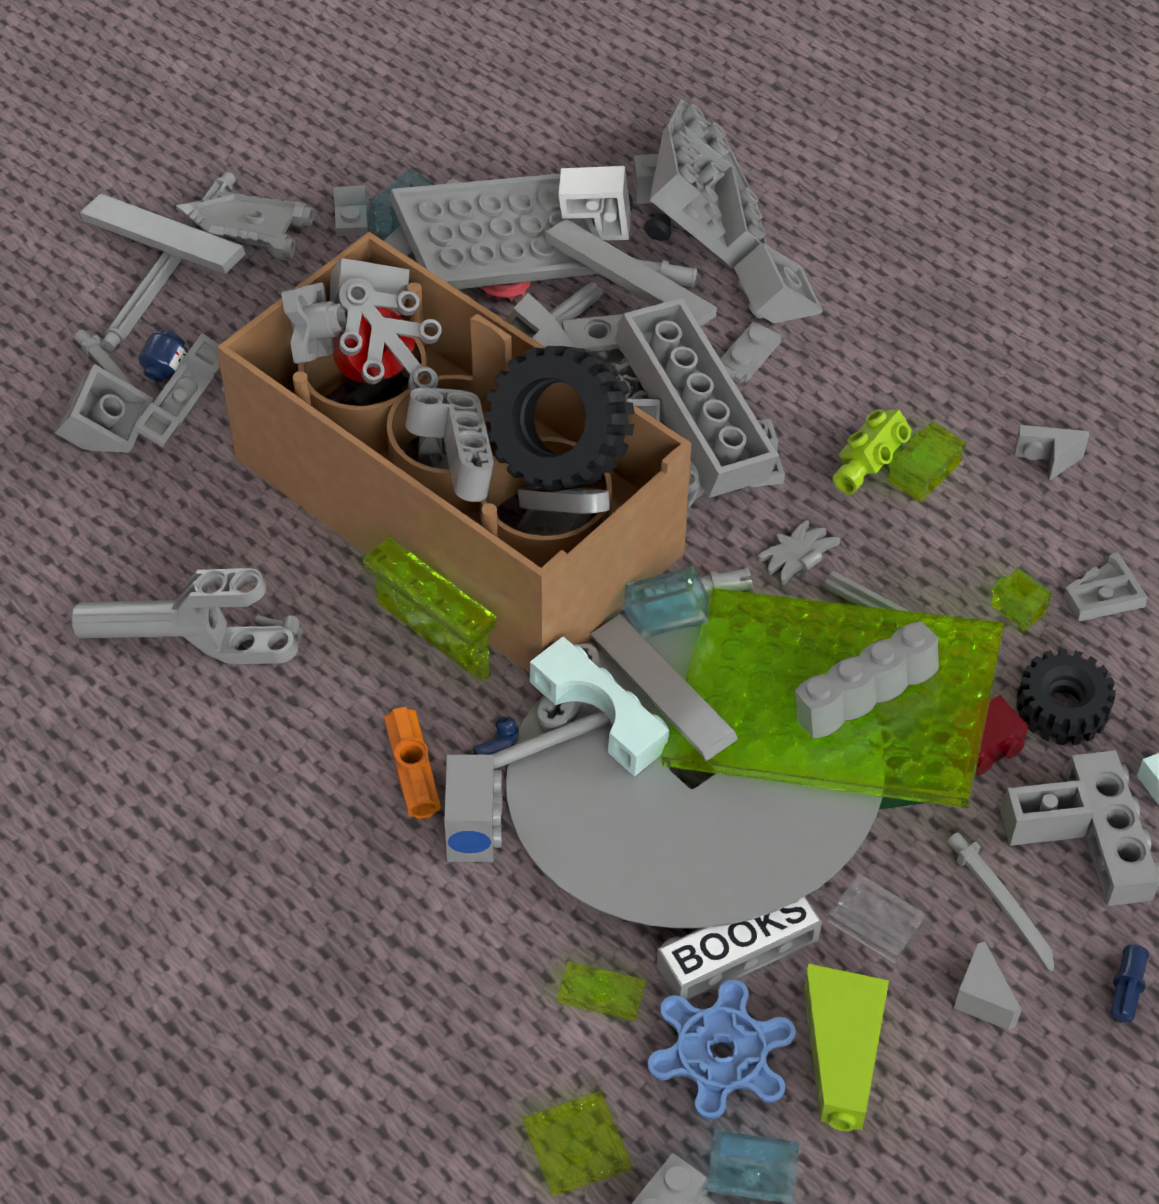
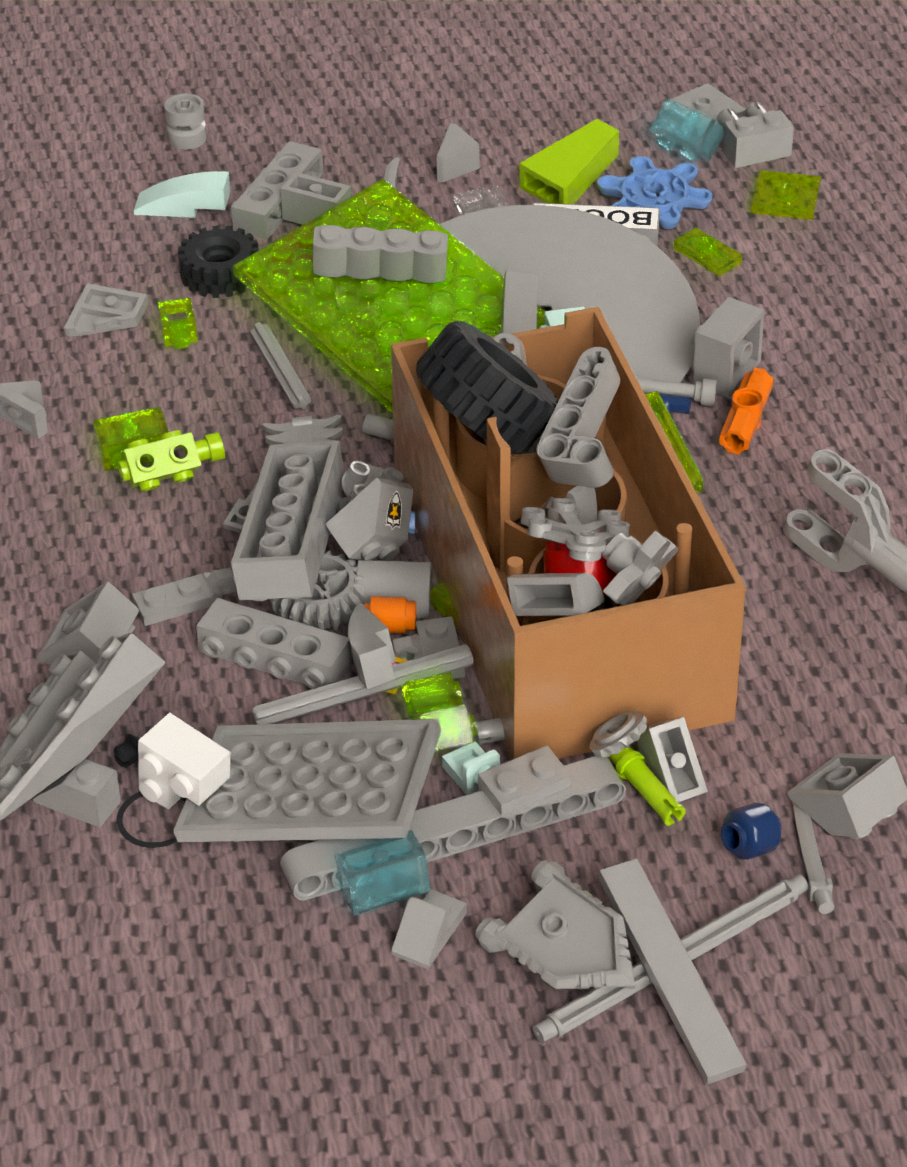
camera: 145 degrees left, 10 degrees down
(181, 392) = (794, 762): light grey slope -> none
(290, 623) = (781, 547): light grey hand -> none
(624, 269) = (228, 675): light grey tile -> none
(679, 274) = (177, 700): light grey pin -> none
(1129, 983) = (359, 130): dark blue axle -> none

